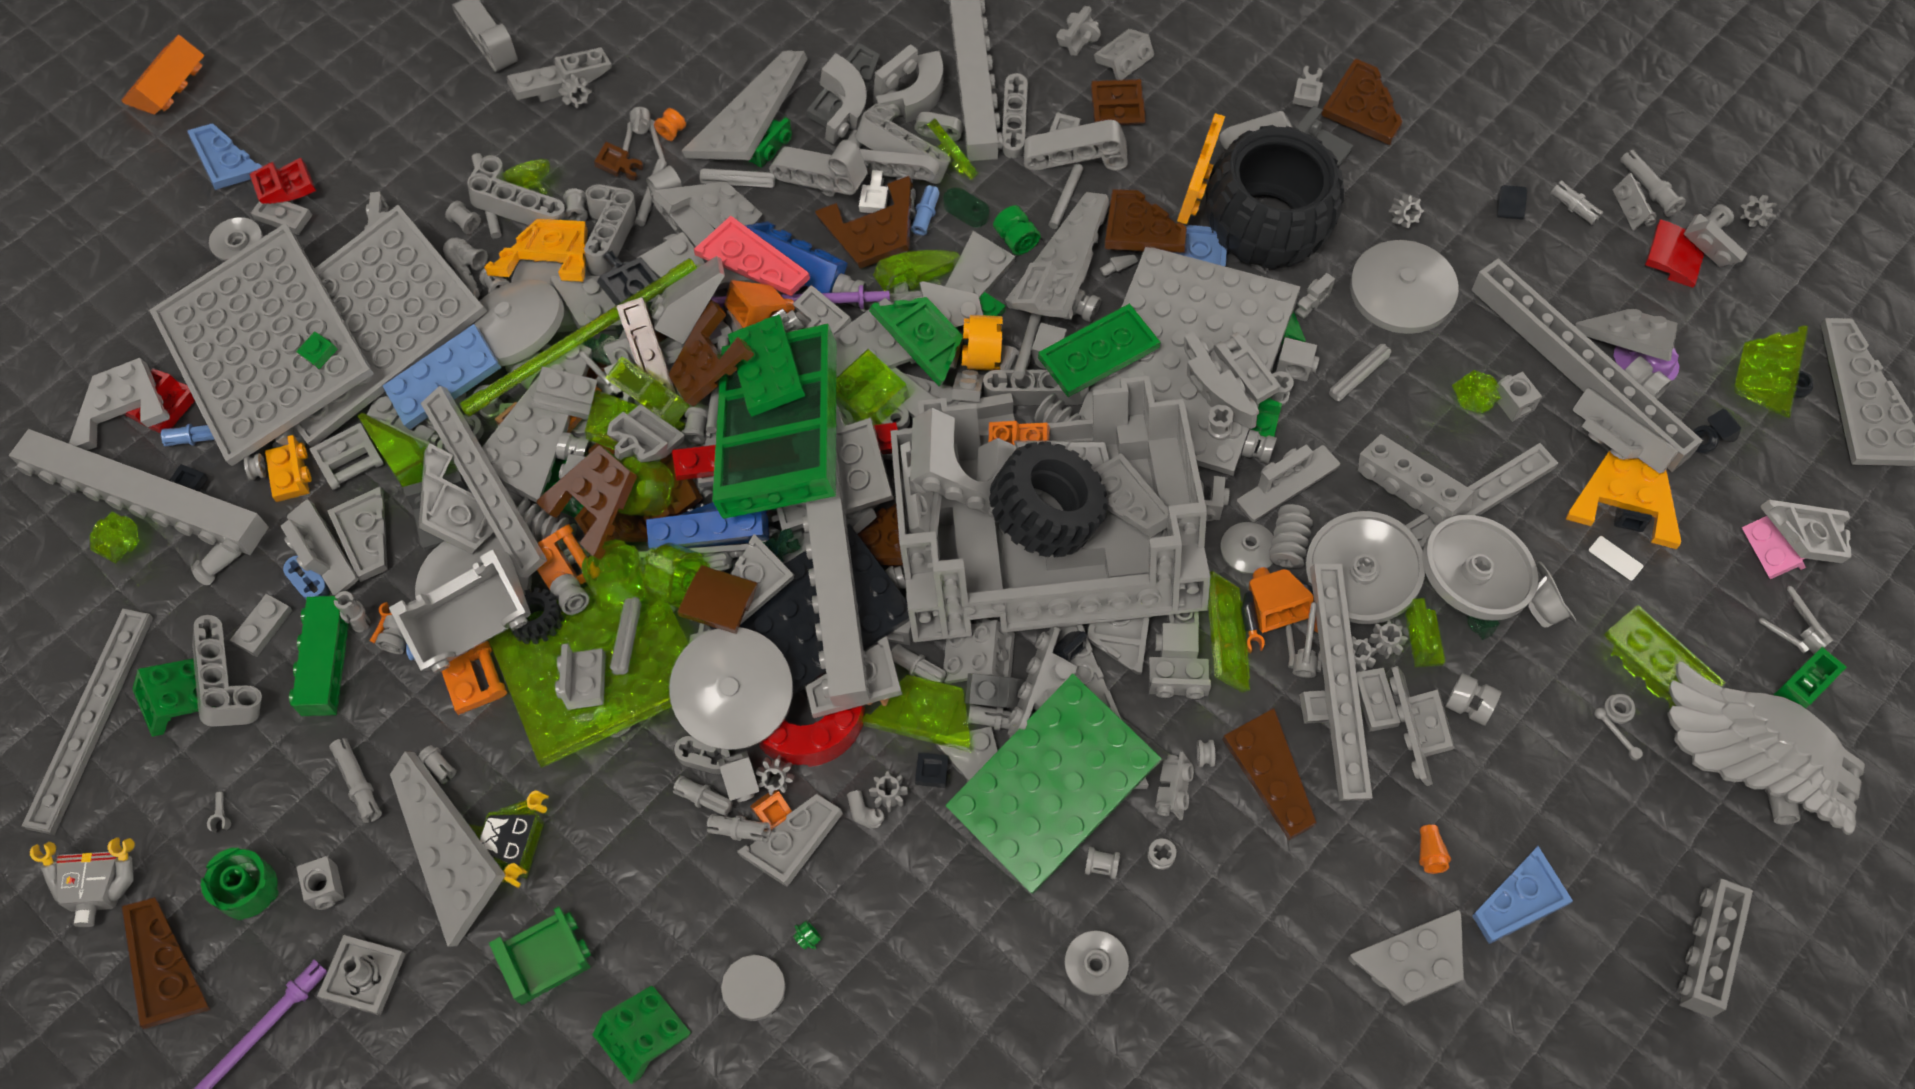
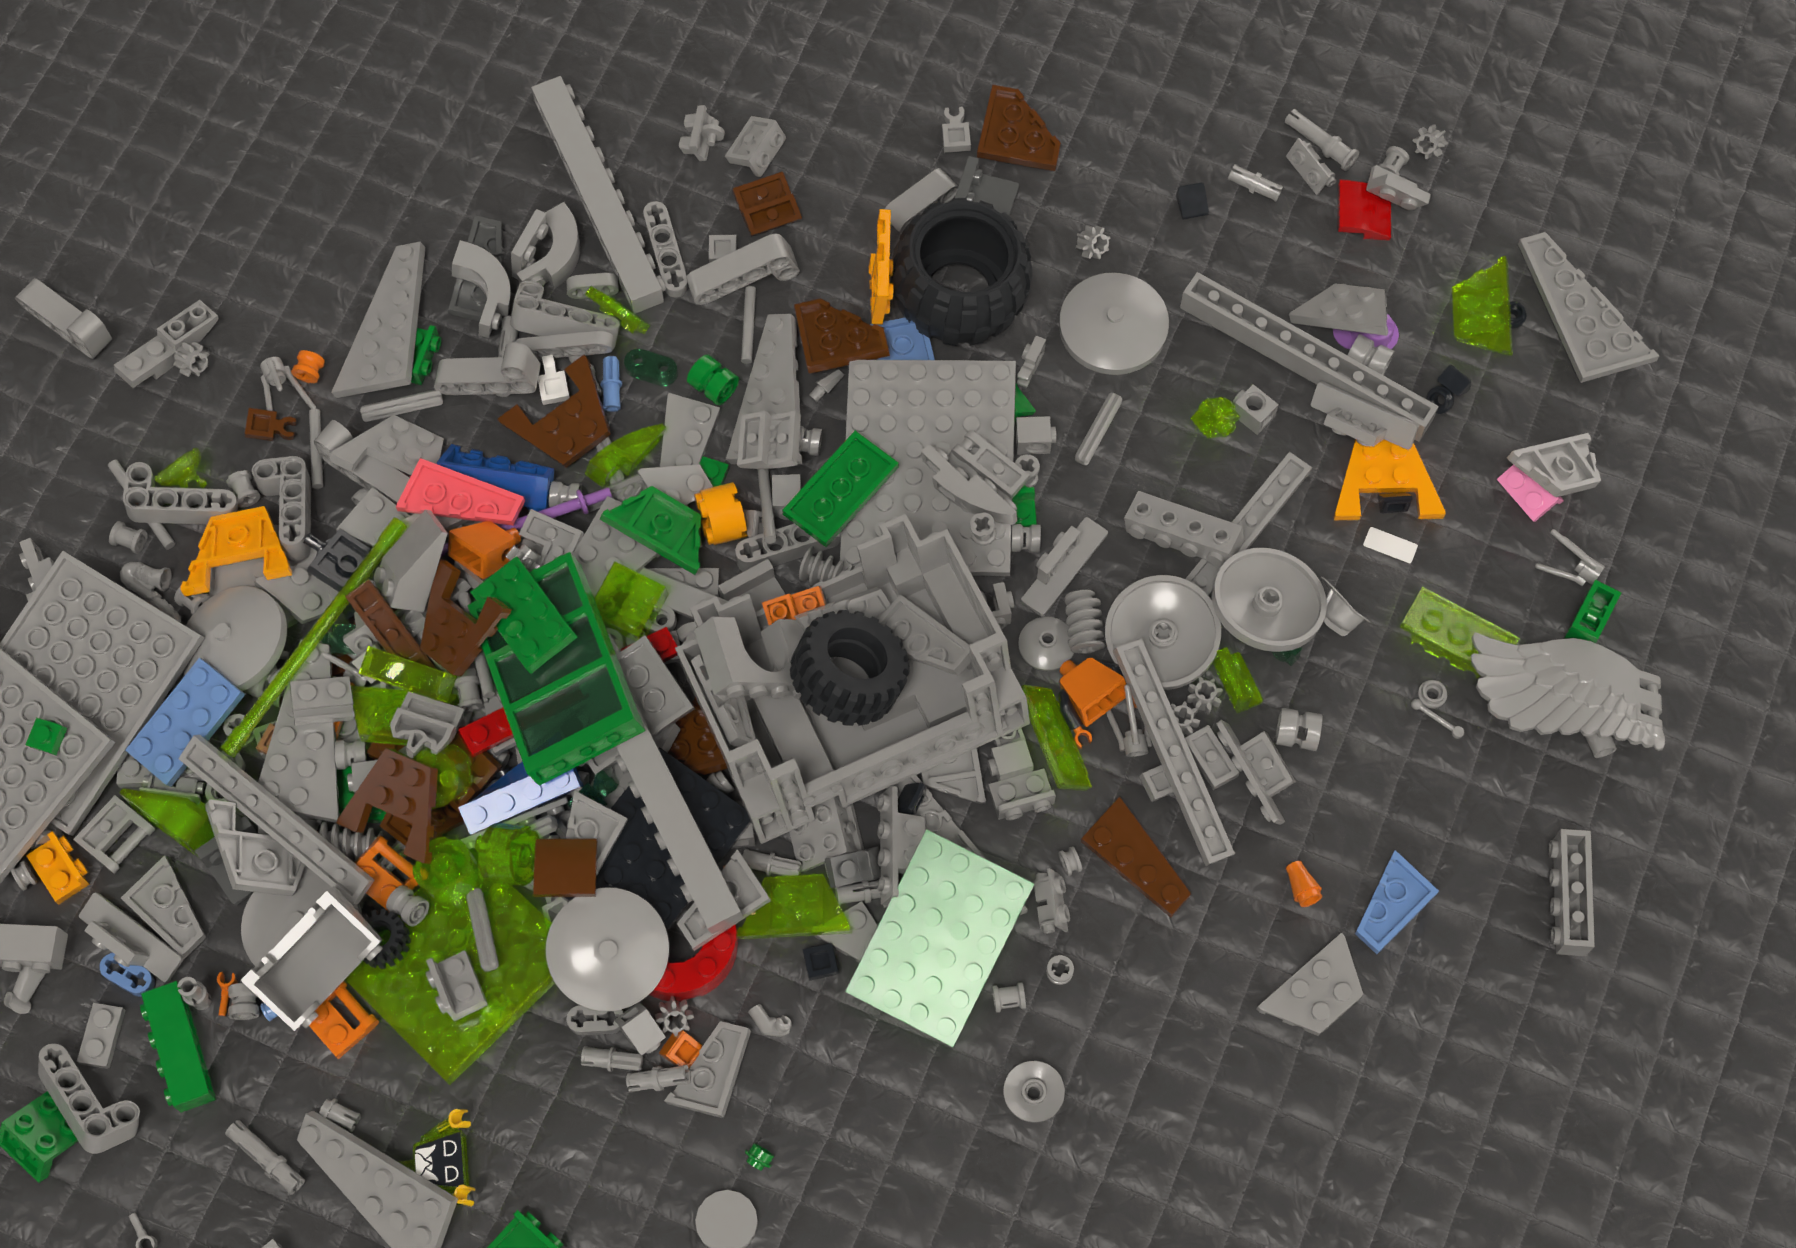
camera: 20 degrees left, 5 degrees up
(888, 800) = (781, 1001): light grey gear -> none
(968, 386) = (722, 564): light grey plate -> none

